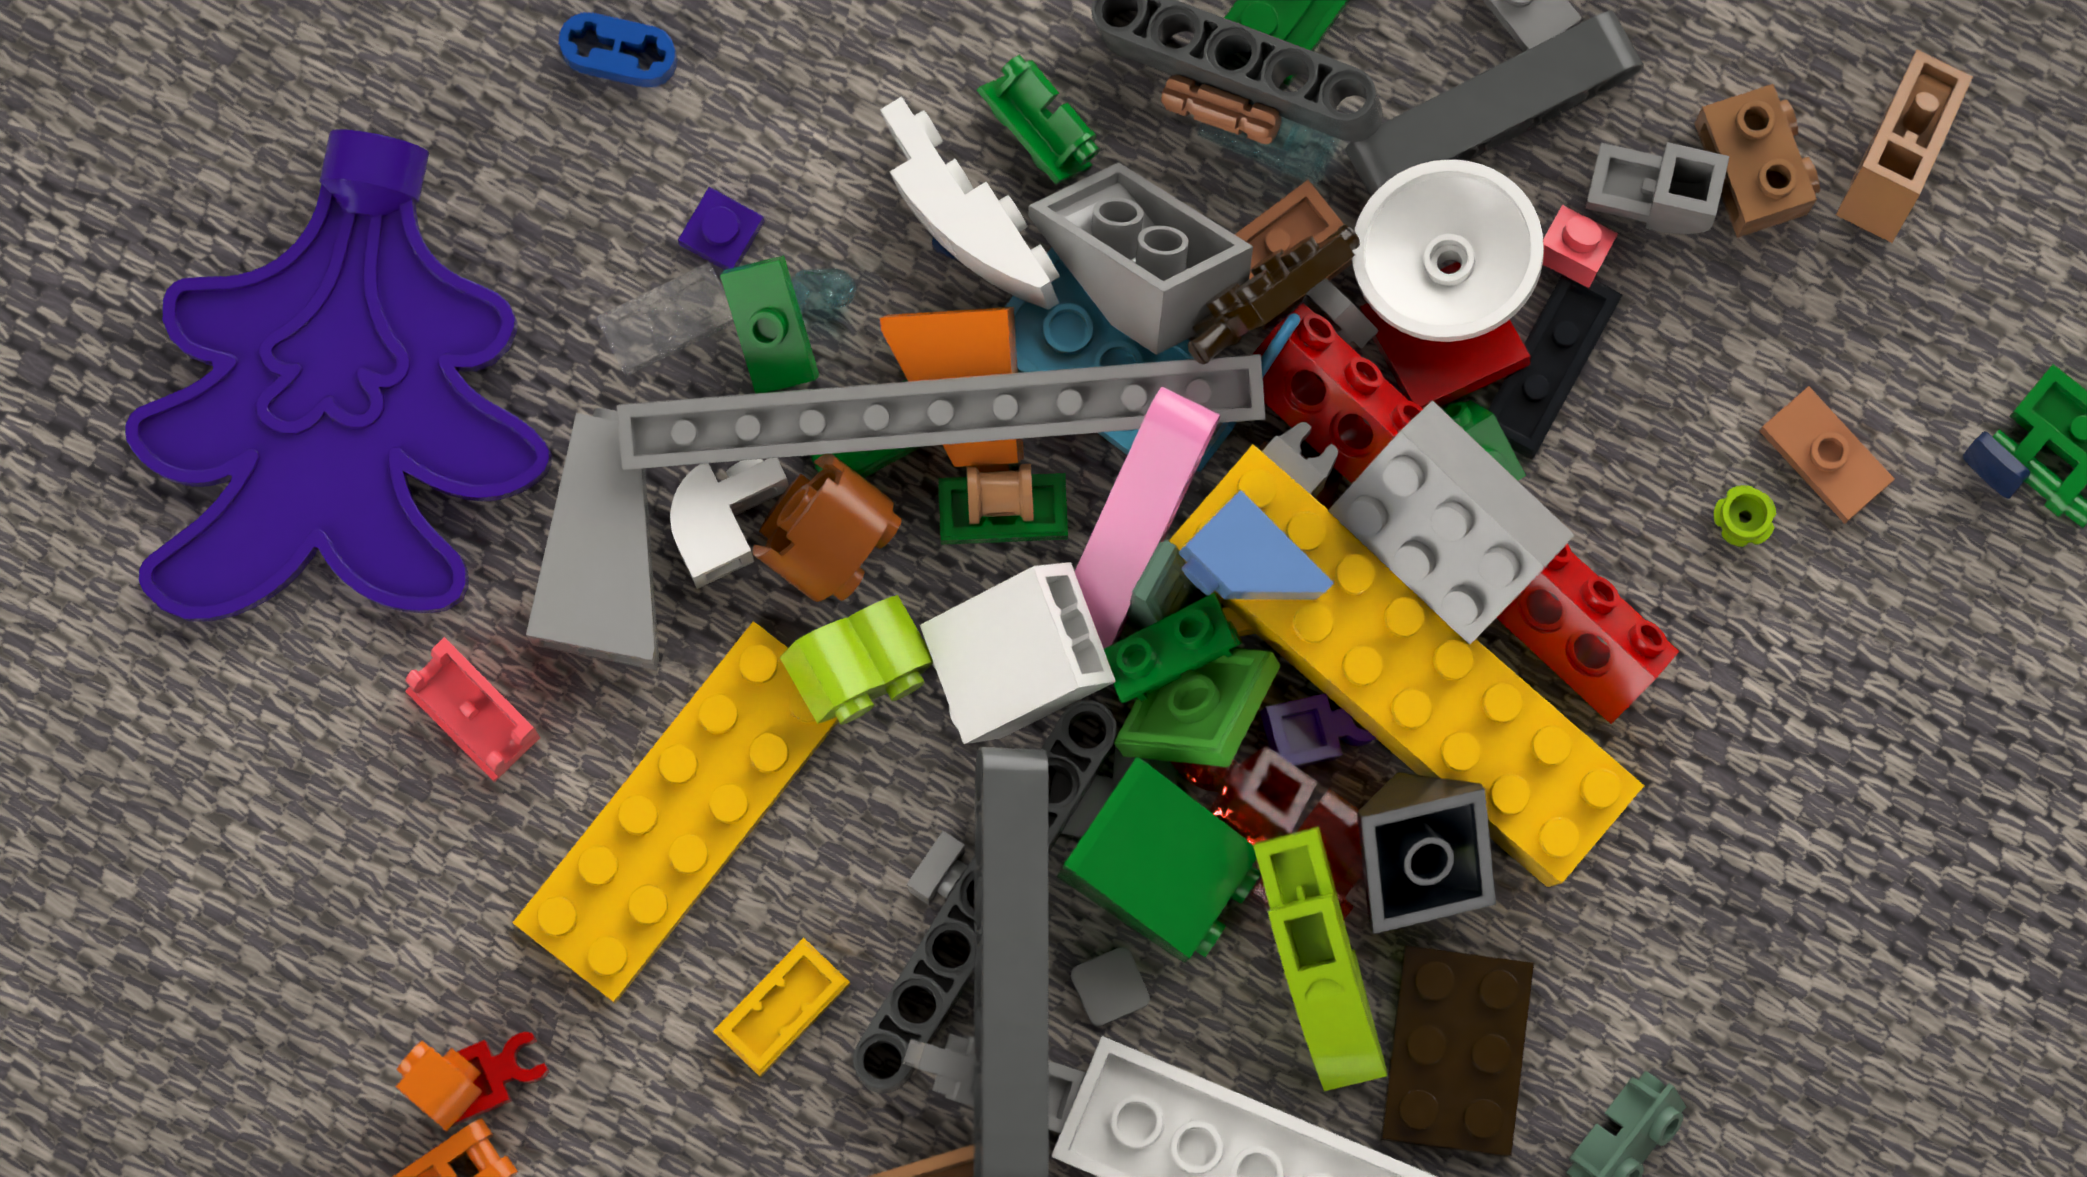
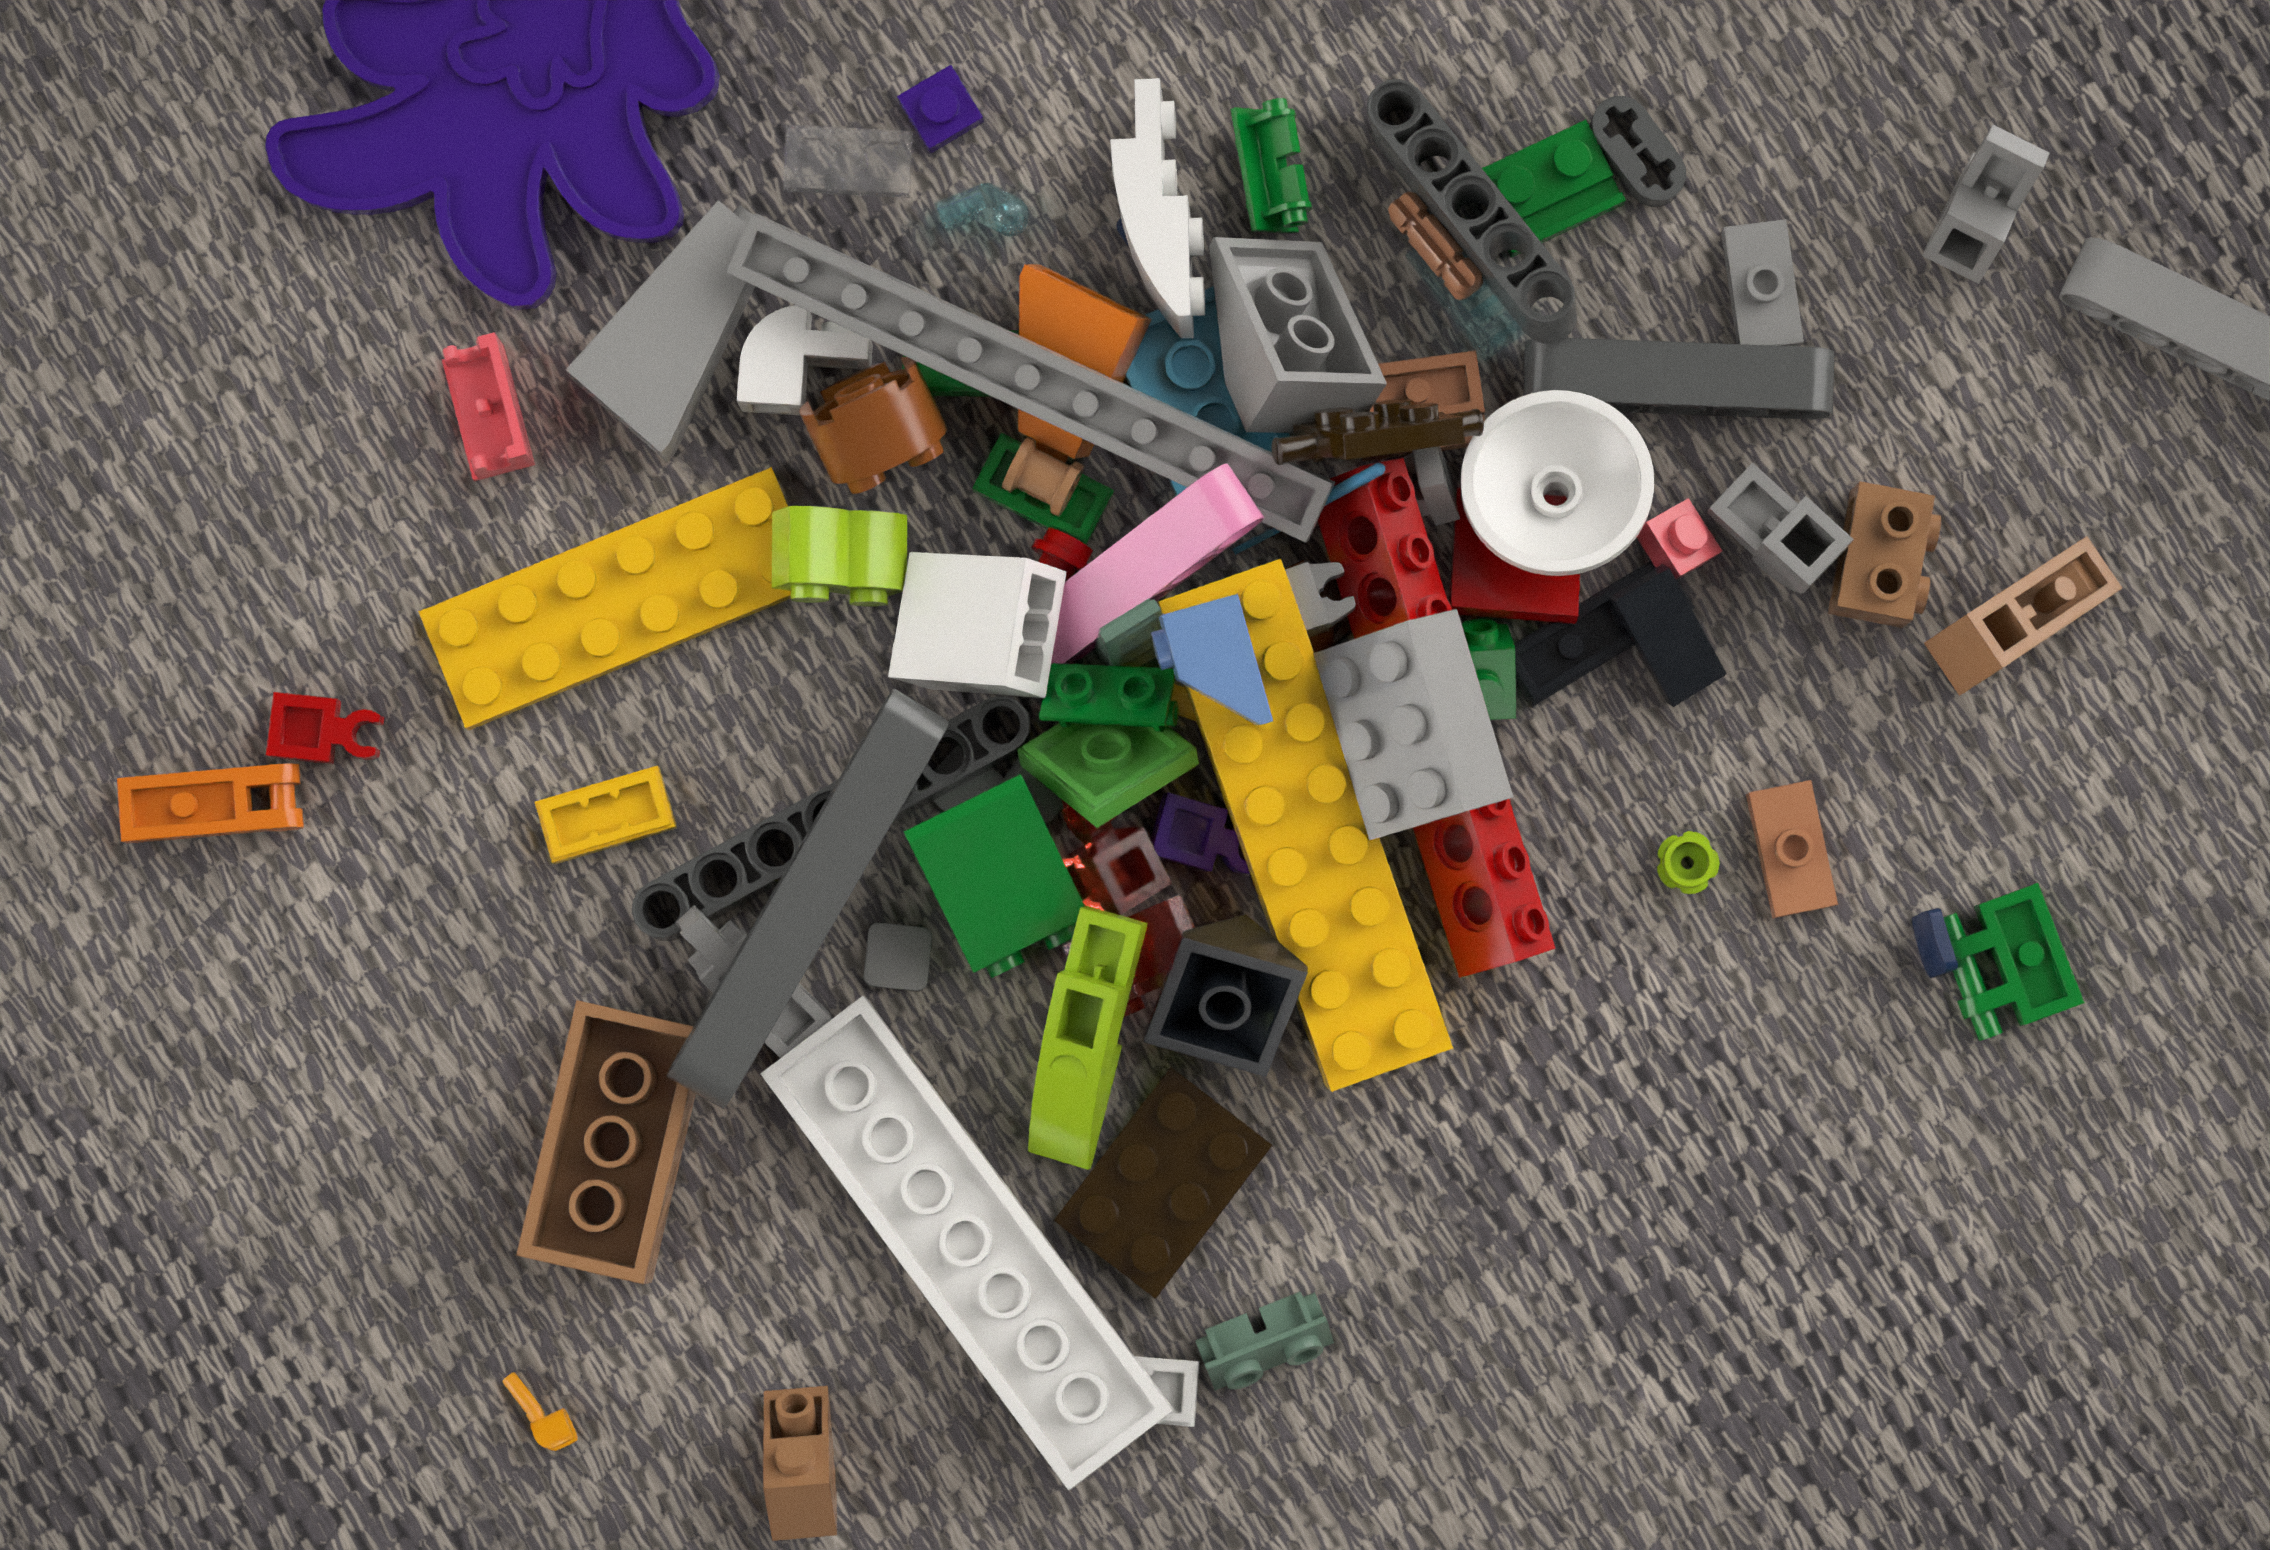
camera: 30 degrees right, 5 degrees up
(438, 1083) = (272, 714): orange plate -> none
(769, 325) = (931, 216): green plate -> none
(939, 869) = (805, 772): light grey plate -> none
(1051, 549) = (1062, 551): none -> red plate
(1614, 330) = (1667, 635): none -> black tile

